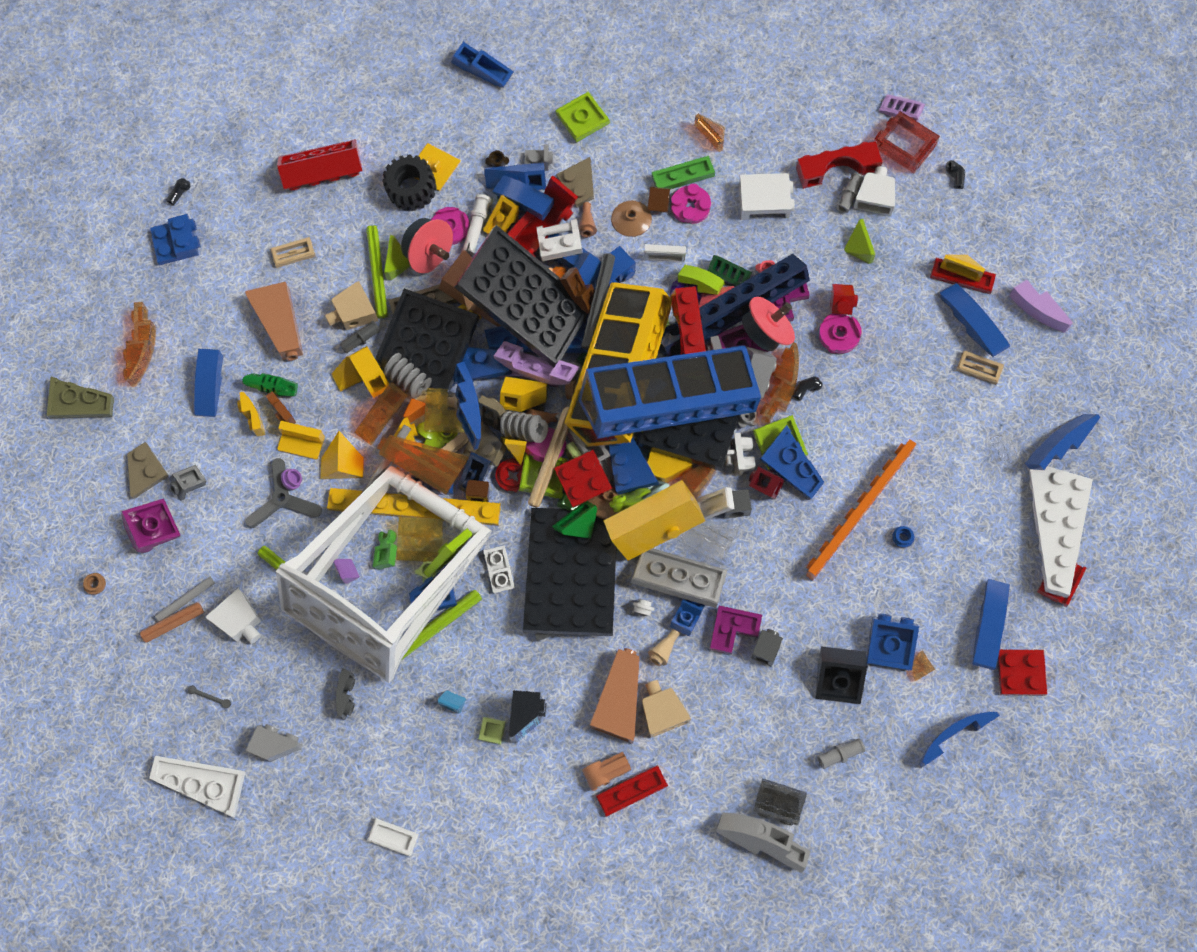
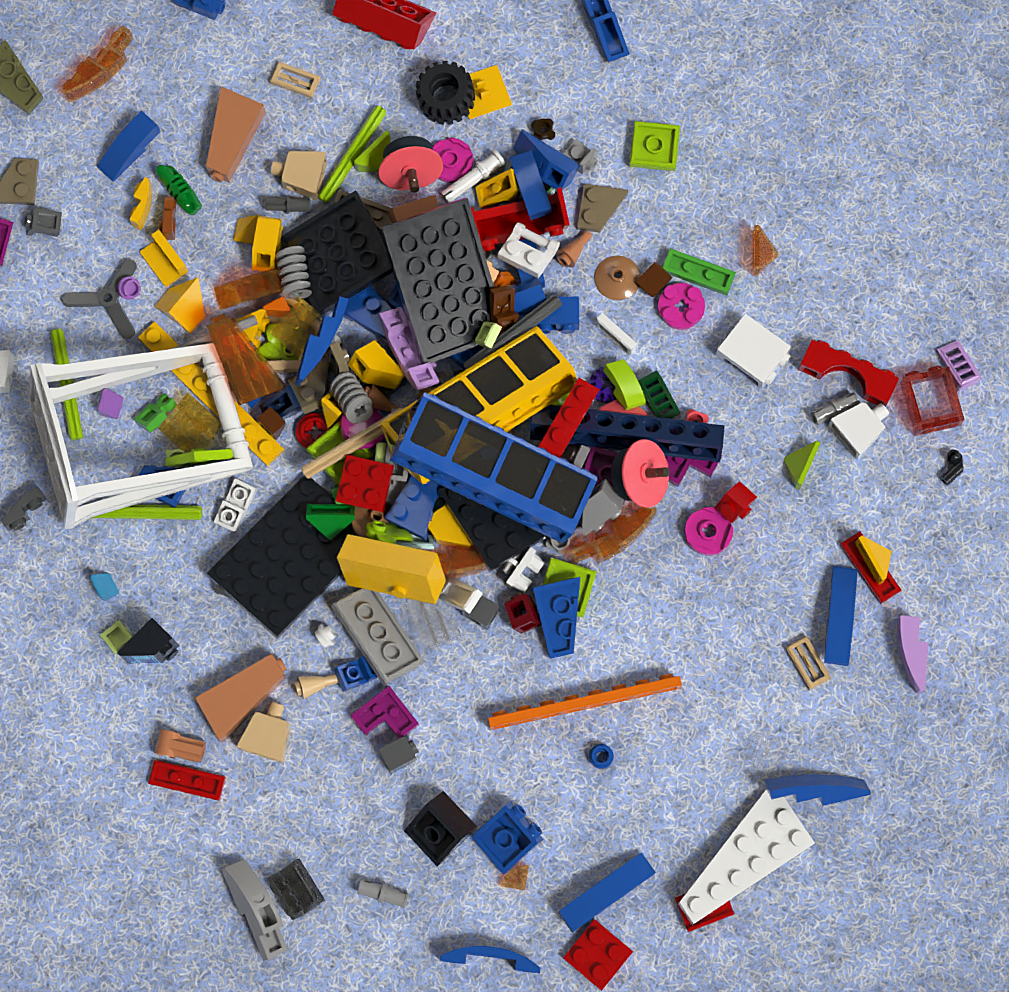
camera: 40 degrees right, 5 degrees up
(583, 312) = (487, 334): none -> yellowish green tile
(806, 384) = (638, 554): black arm -> none

